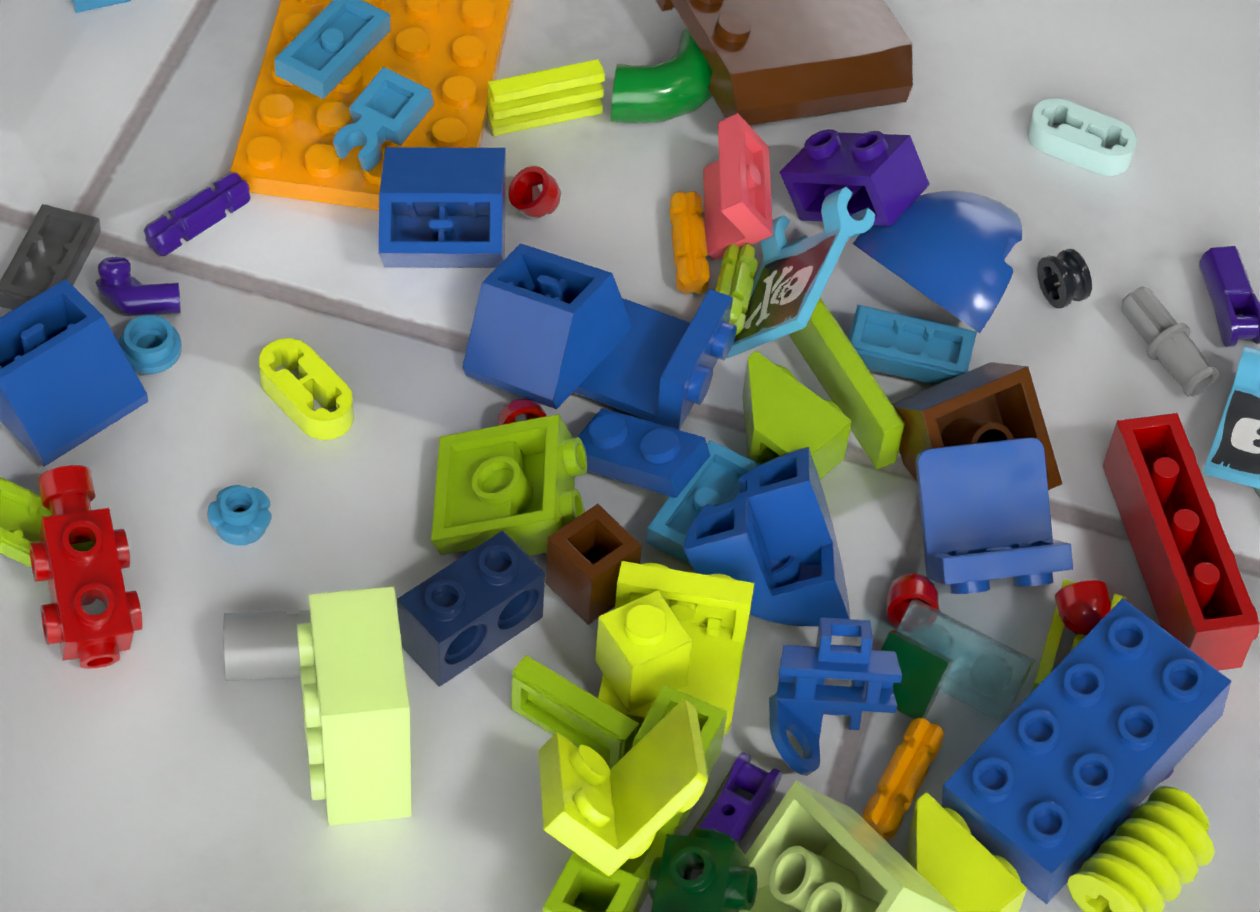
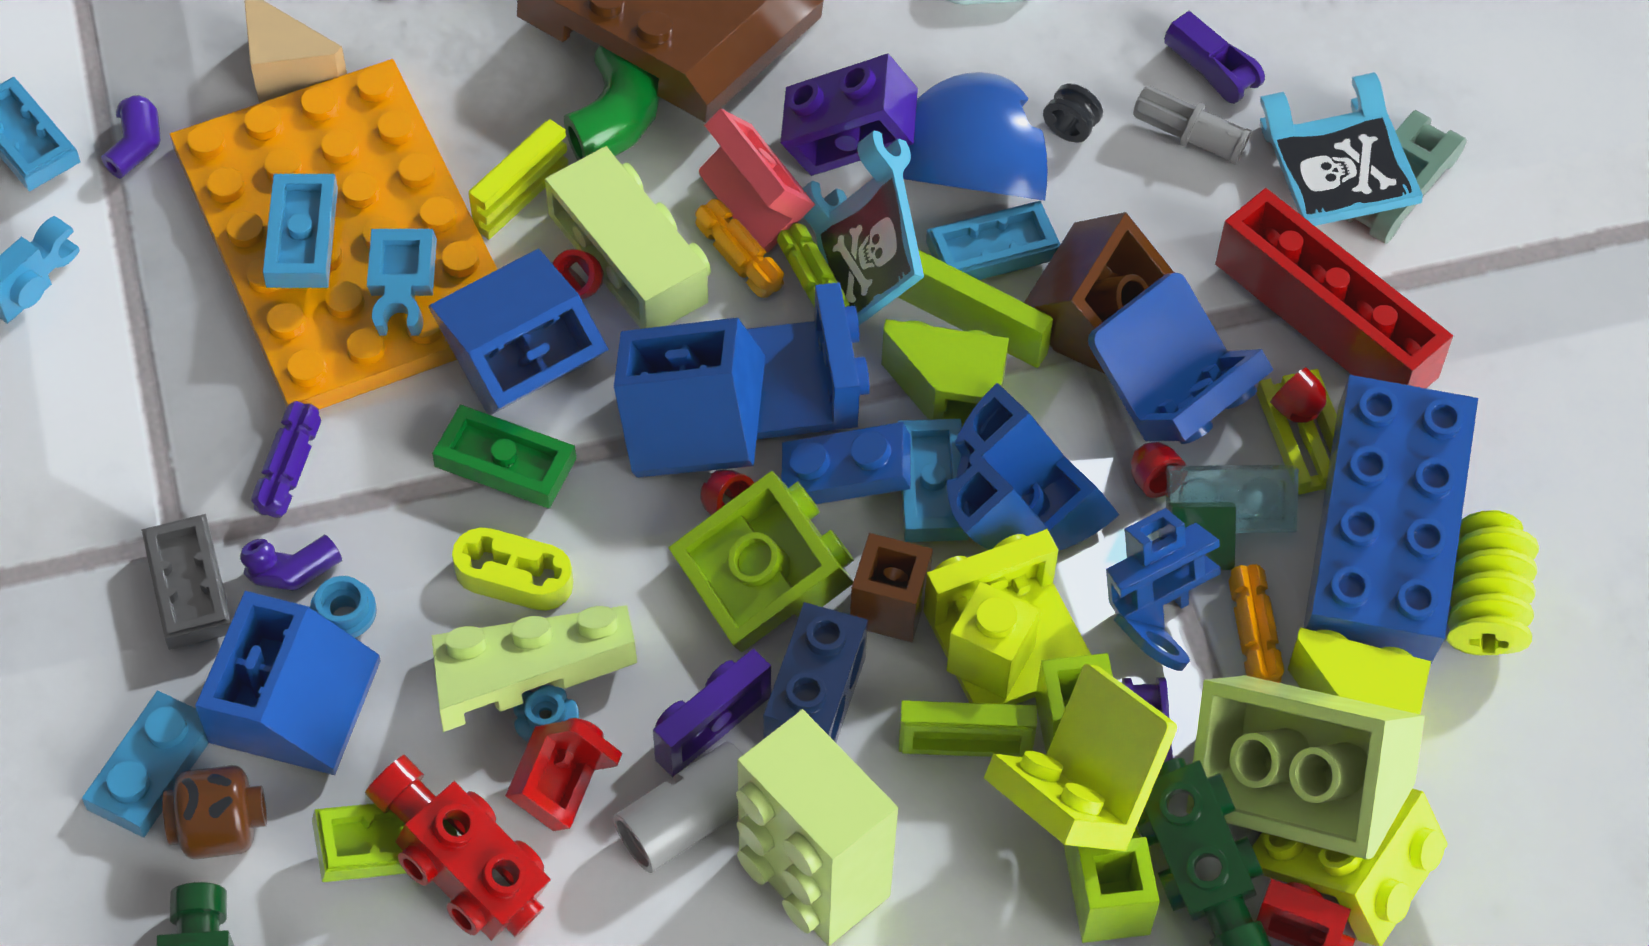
camera: 30 degrees left, 5 degrees up
(211, 557) = (559, 769): none -> red bracket
(238, 449) = (507, 659): none -> yellowish green wing
(366, 299) = (504, 456): none -> green plate
(398, 567) = (727, 699): none -> dark purple plate
(600, 185) = (636, 241): none -> yellowish green brick

